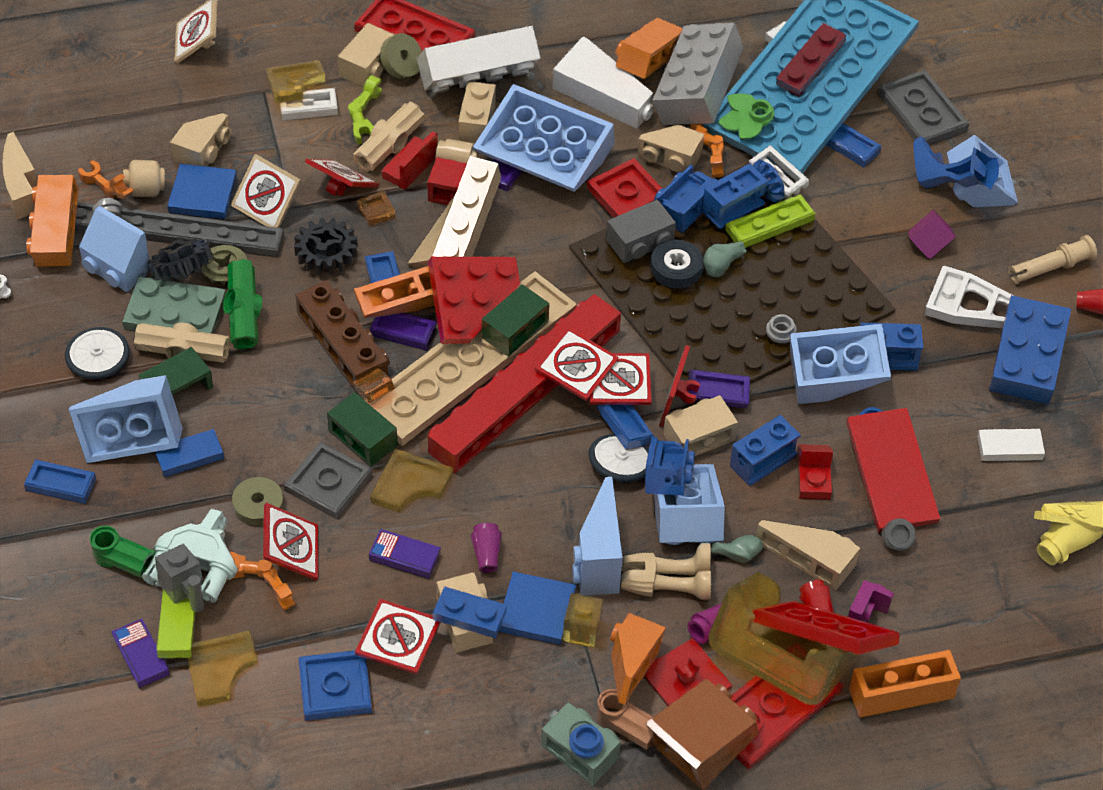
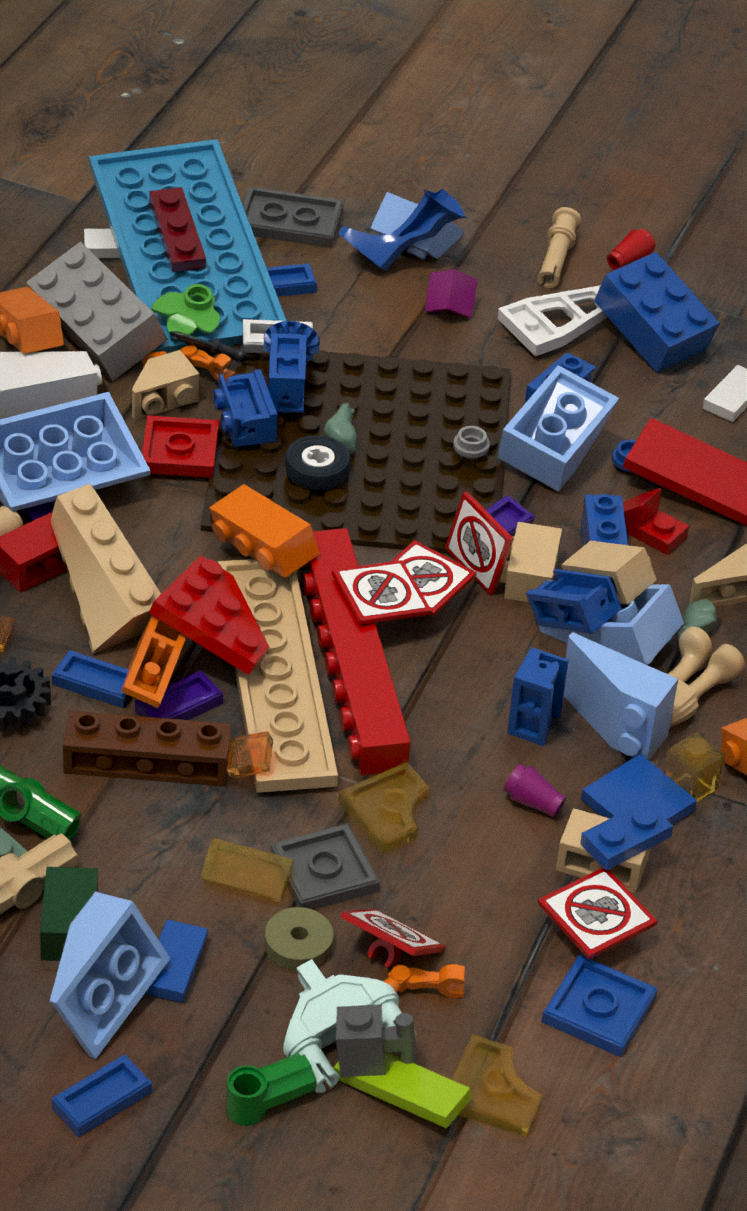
camera: 55 degrees left, 10 degrees down
(140, 653) = (416, 1146): dark purple tile -> none
(284, 442) = (247, 870): none -> clear yellow plate
(362, 429) = (291, 800): dark green panel -> none
(404, 553) = (480, 859): dark purple tile -> none
(515, 320) = (282, 601): dark green panel -> none
(561, 496) = (537, 695): none -> blue hinge
(571, 273) = (264, 531): none -> orange brick
(614, 461) = (511, 637): white wheel -> none
(626, 425) = (476, 610): blue tile -> none
(640, 231) = (257, 457): dark grey brick -> none
(713, 469) = (624, 564): none -> tan brick
(730, 149) = (215, 347): none -> black piece
(770, 221) = (329, 377): lime tile -> none

